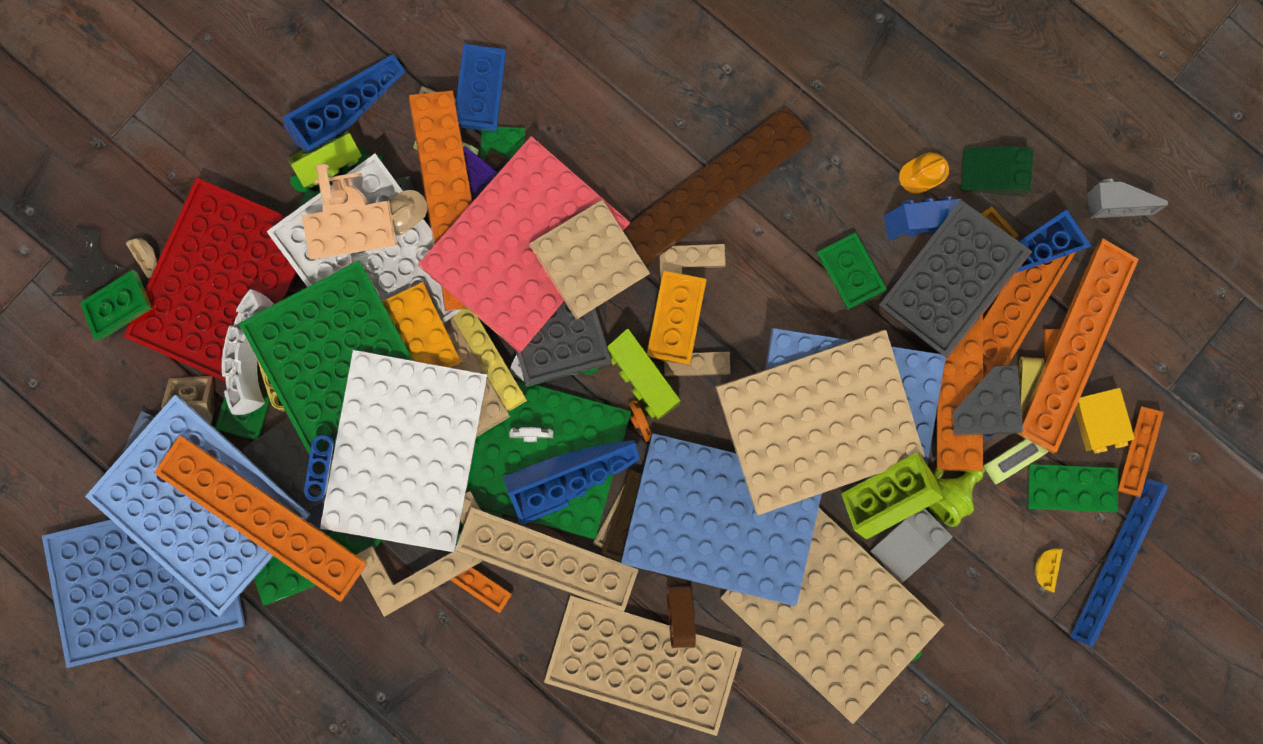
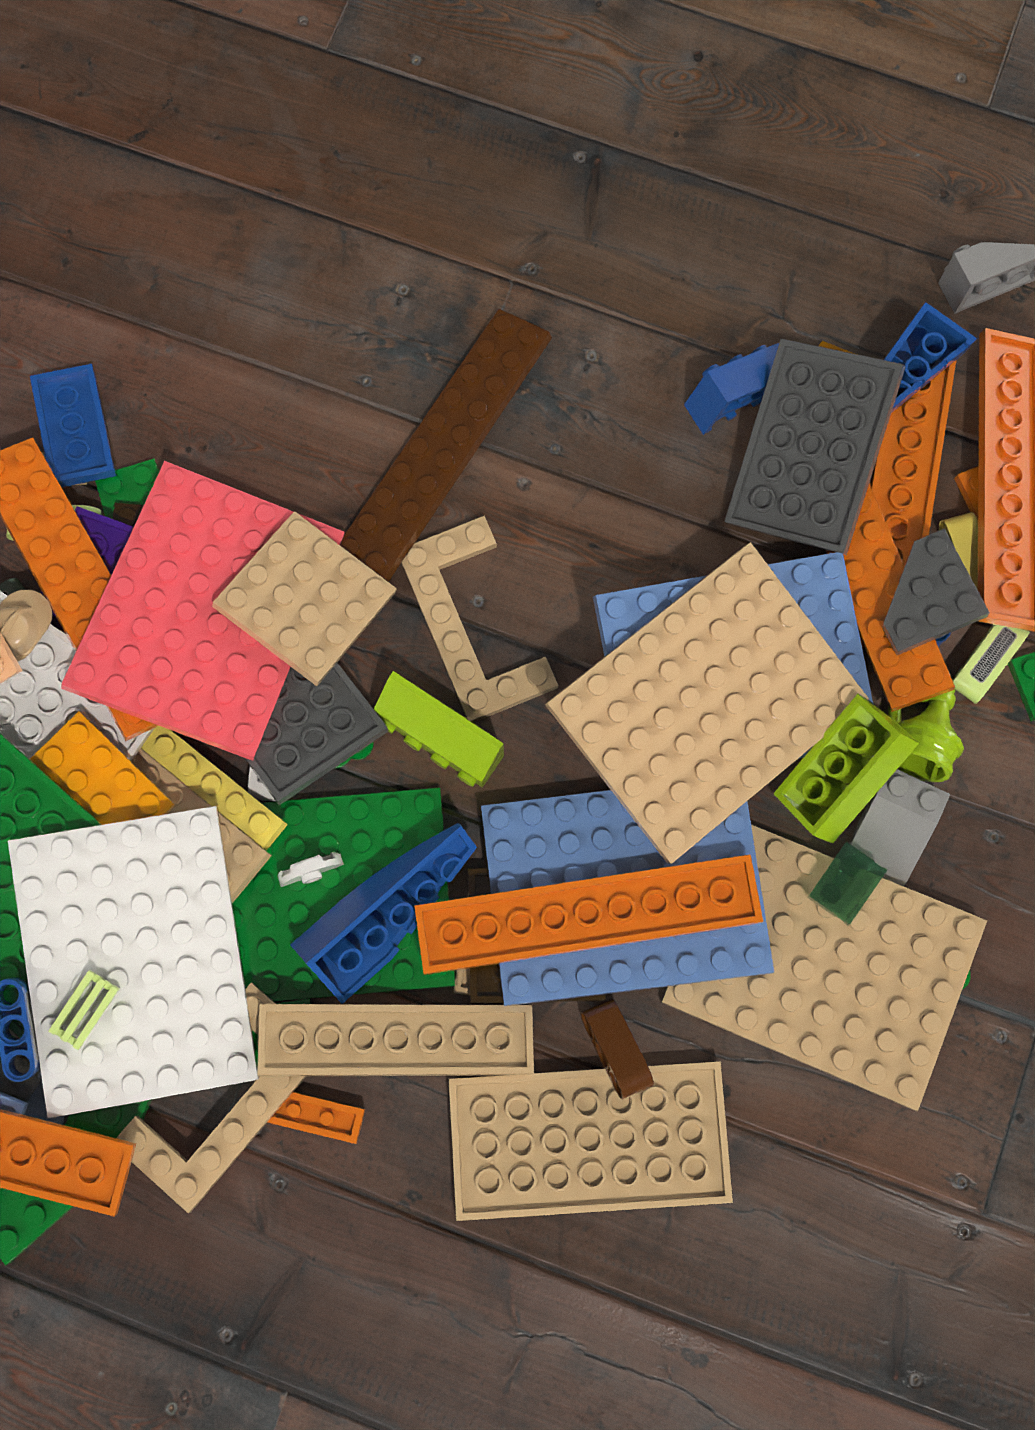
camera: 20 degrees left, 5 degrees down
(349, 483) = (67, 1035): none -> yellowish green tile
(639, 420) = (457, 796): orange plate -> none
(676, 318) = (455, 635): light orange plate -> none
(694, 527) = (588, 914): none -> orange plate
(851, 271) = (670, 490): green plate -> none
(864, 568) = (847, 883): none -> clear green plate
(924, 173) = (715, 330): light orange piece -> none
(997, 170) = (812, 292): dark green slope -> none

